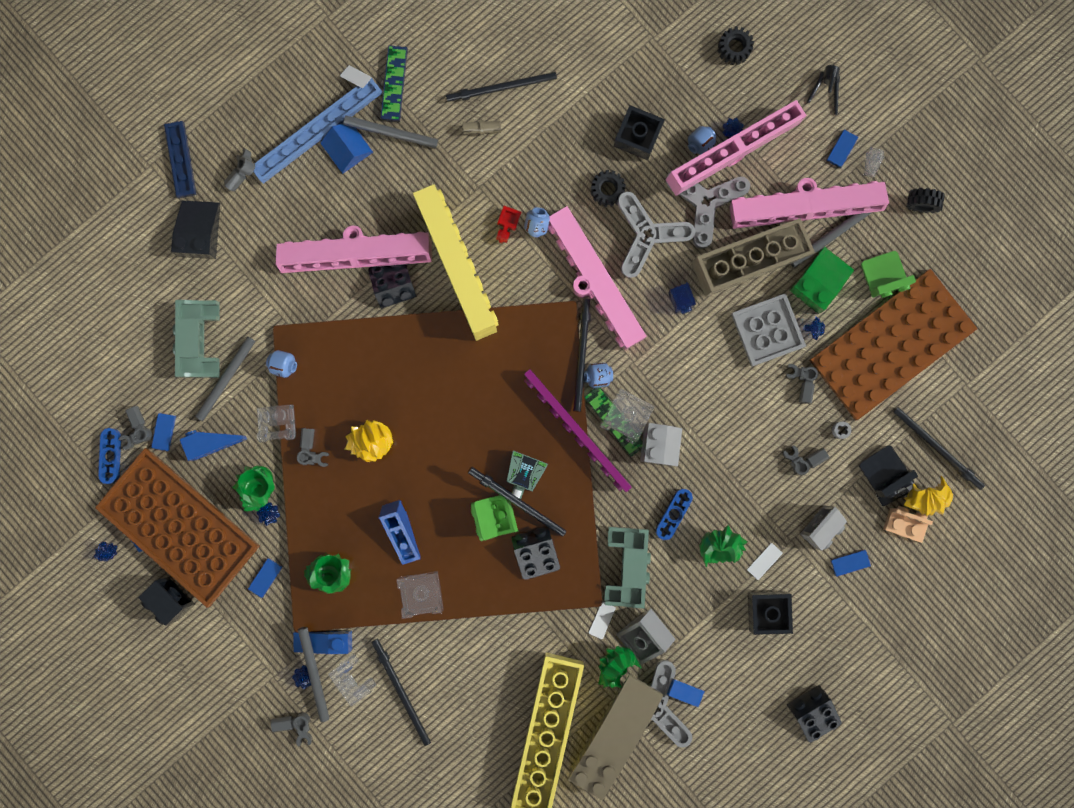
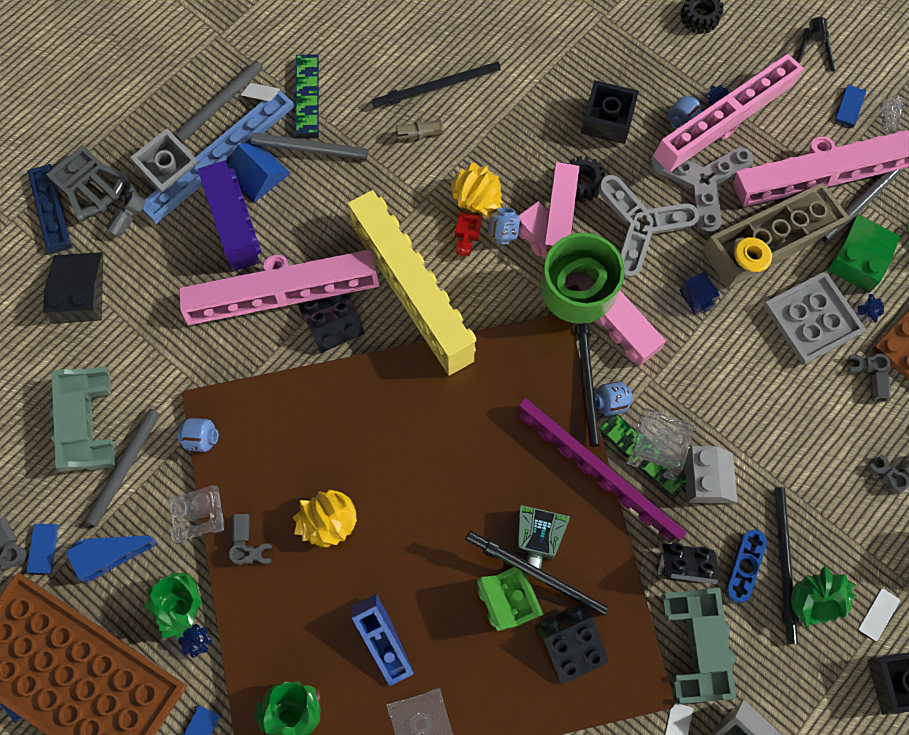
camera: 10 degrees left, 15 degrees down
(202, 132) = (79, 170): none -> dark grey plate
(272, 133) = (163, 160): none -> light grey slope
(320, 187) = (230, 215): none -> dark purple brick
(321, 80) = (218, 102): none -> dark grey piece
(520, 189) = (477, 190): none -> yellow hair
(584, 214) = (561, 203): none -> bright pink tile
(593, 262) = (588, 256): none -> bright green piece
(629, 510) = (688, 563): none -> black bracket
(703, 515) = (788, 615): none -> black bar
(734, 273) = (756, 246): none -> yellow piece

